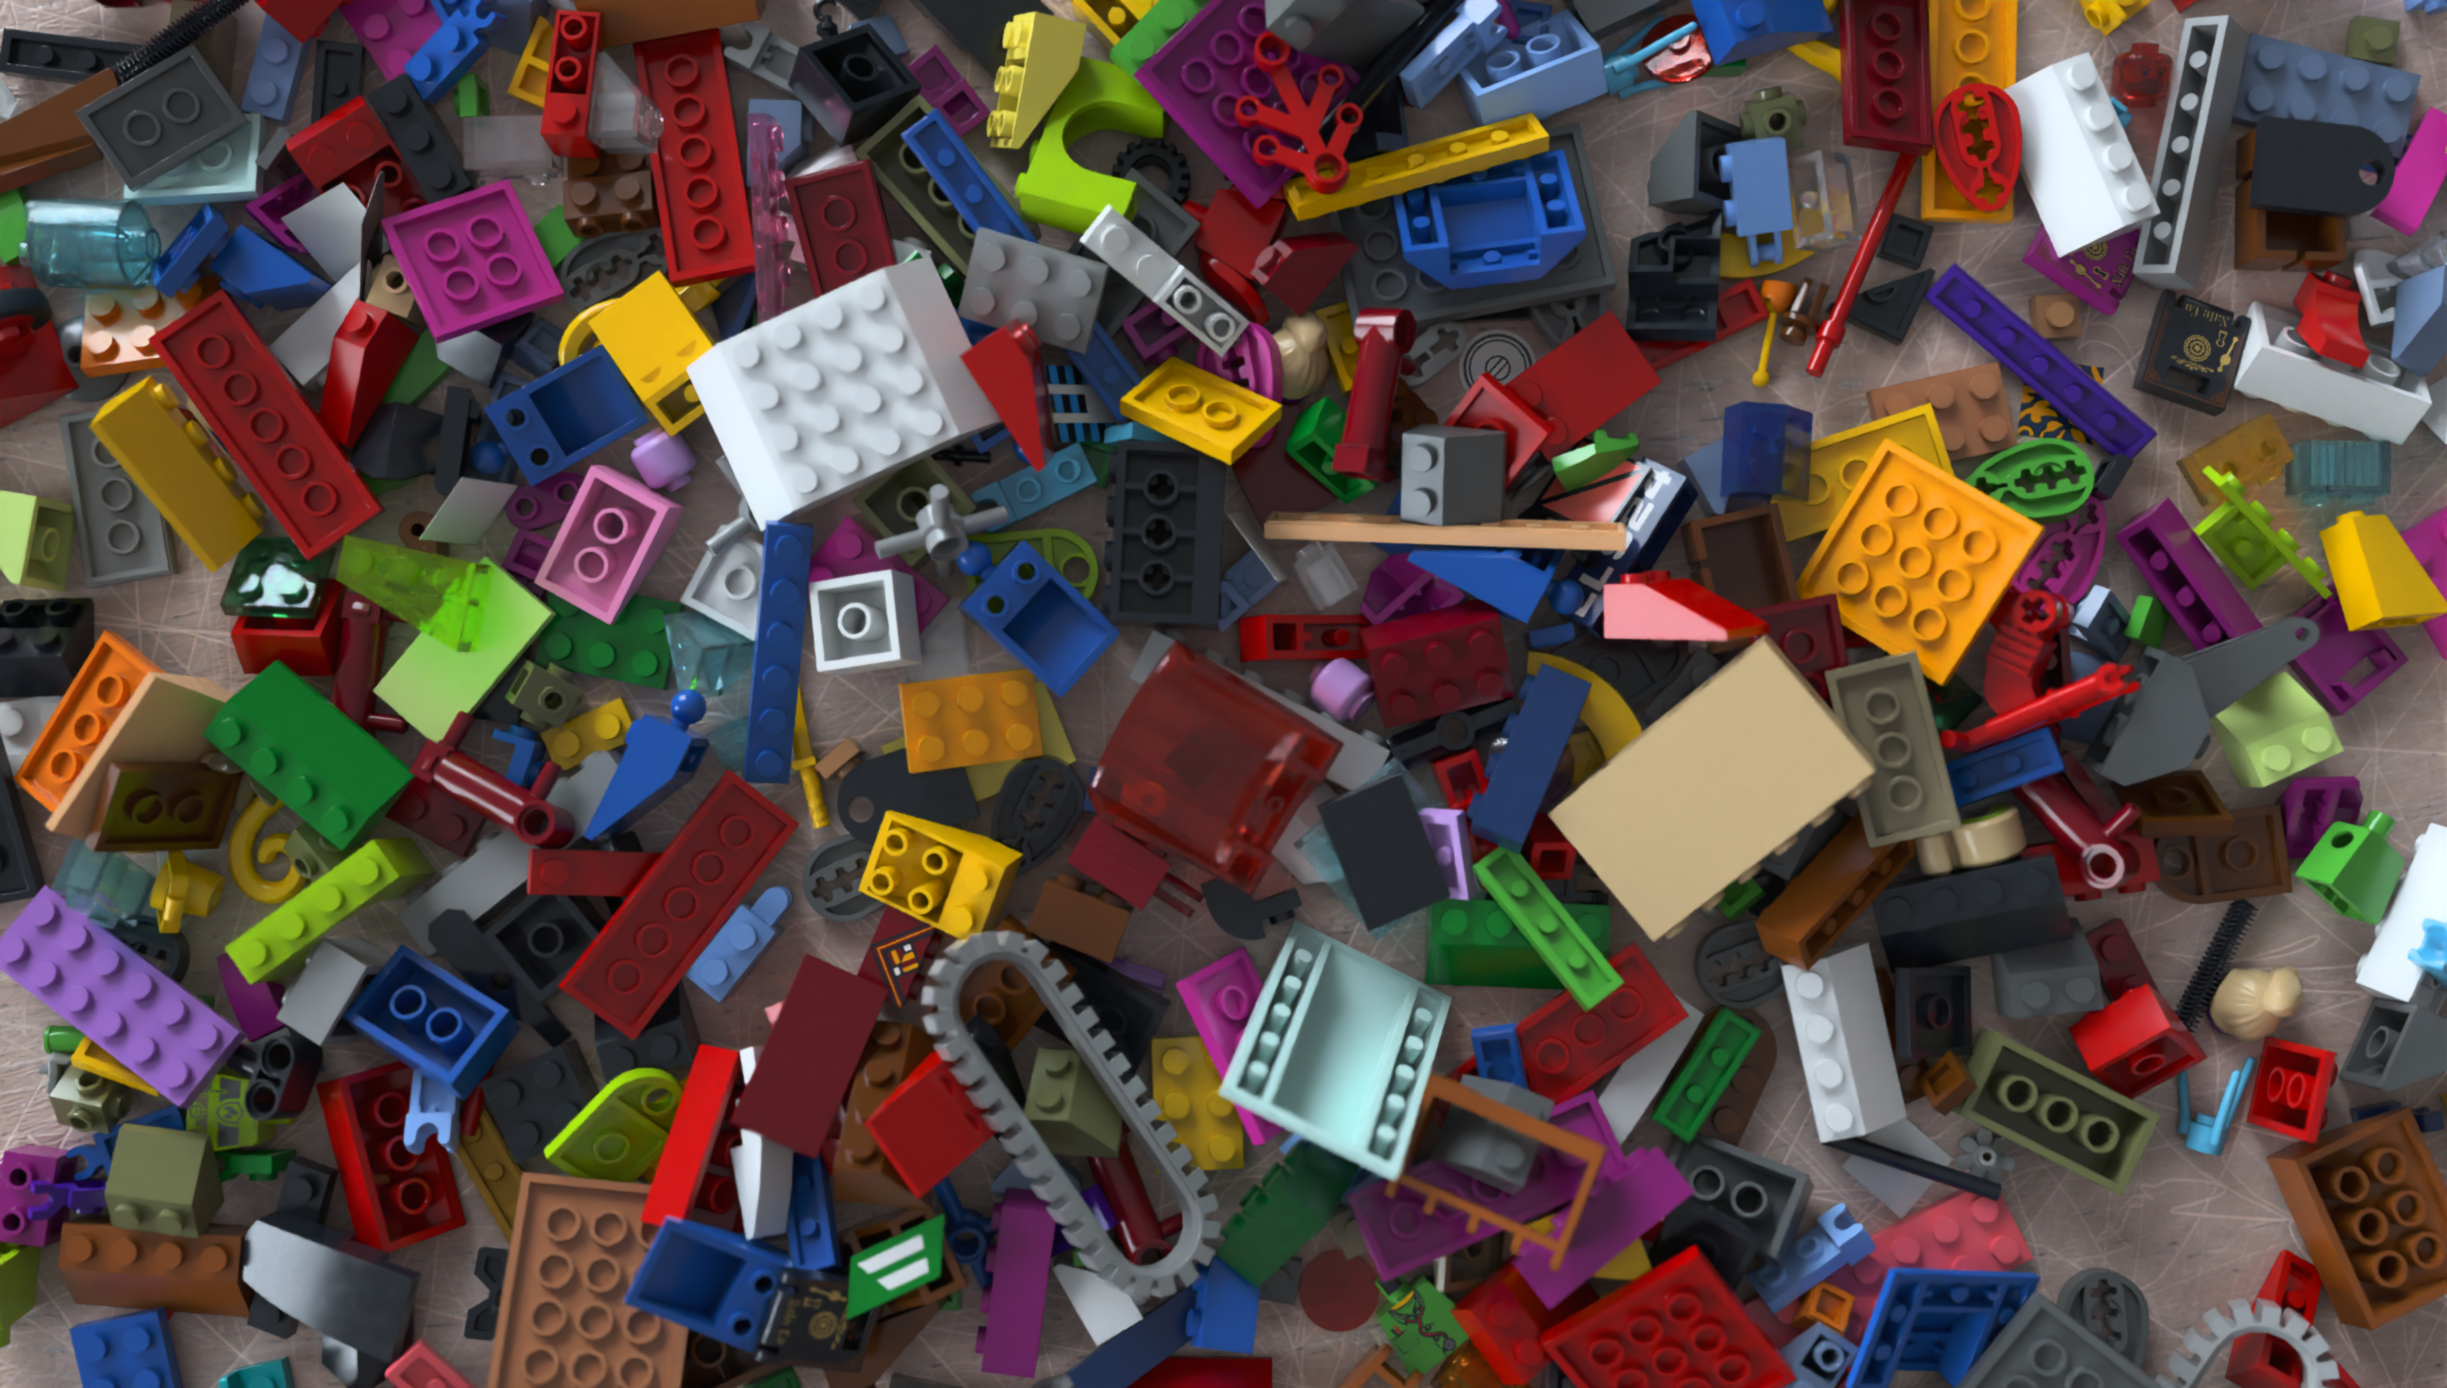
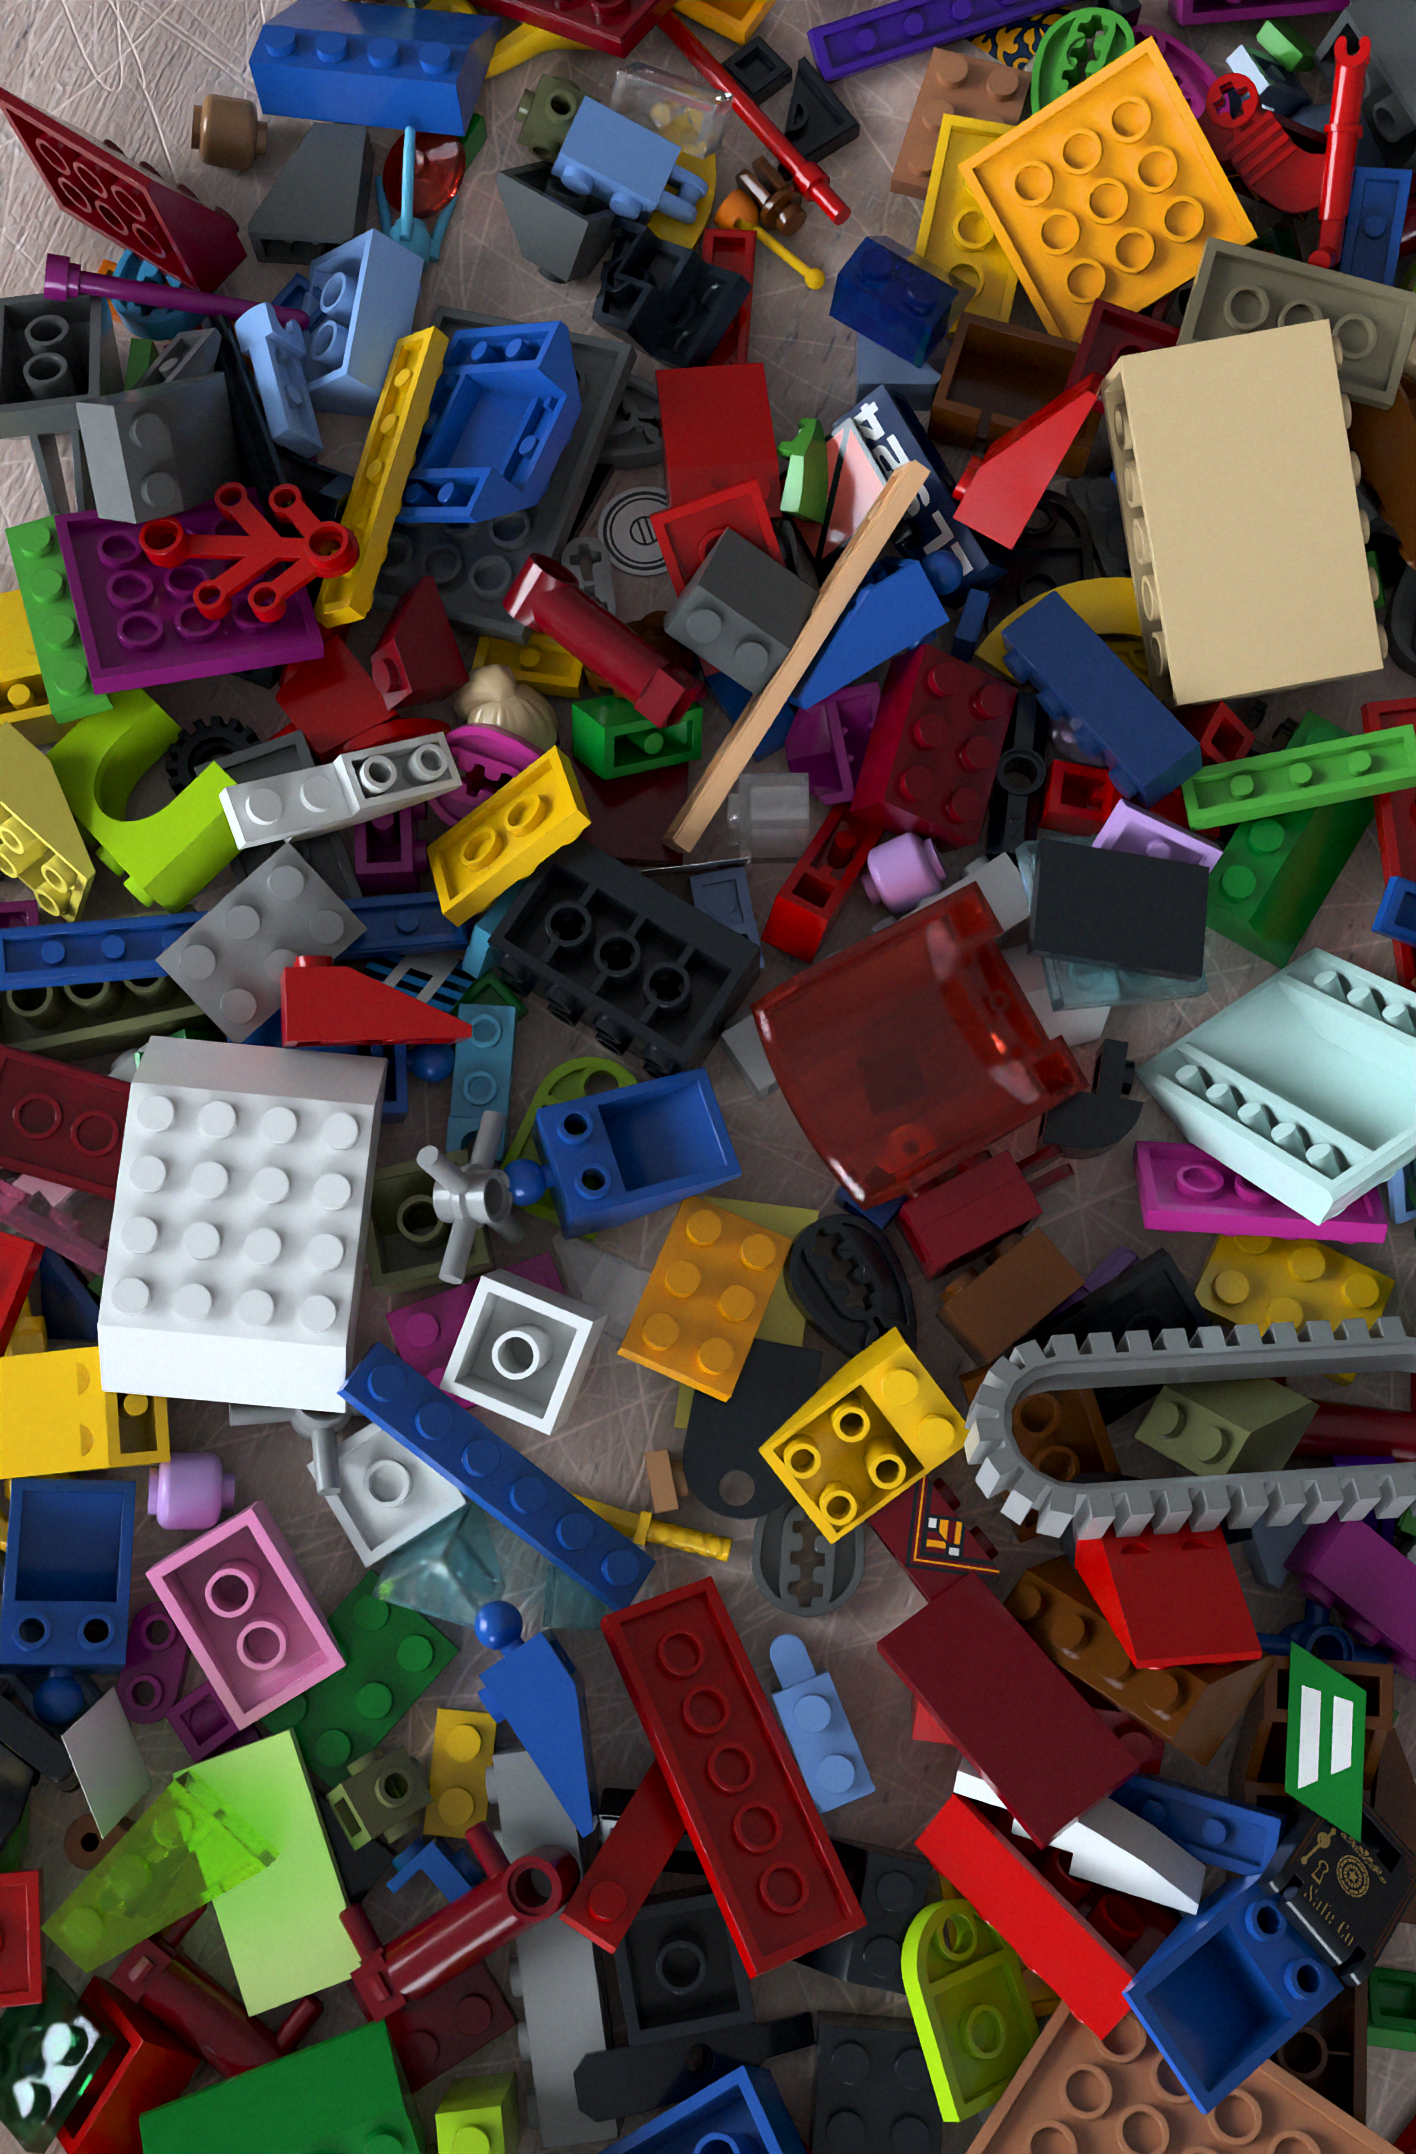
camera: 60 degrees left, 10 degrees down
(960, 456) = (394, 1149): black hand -> none

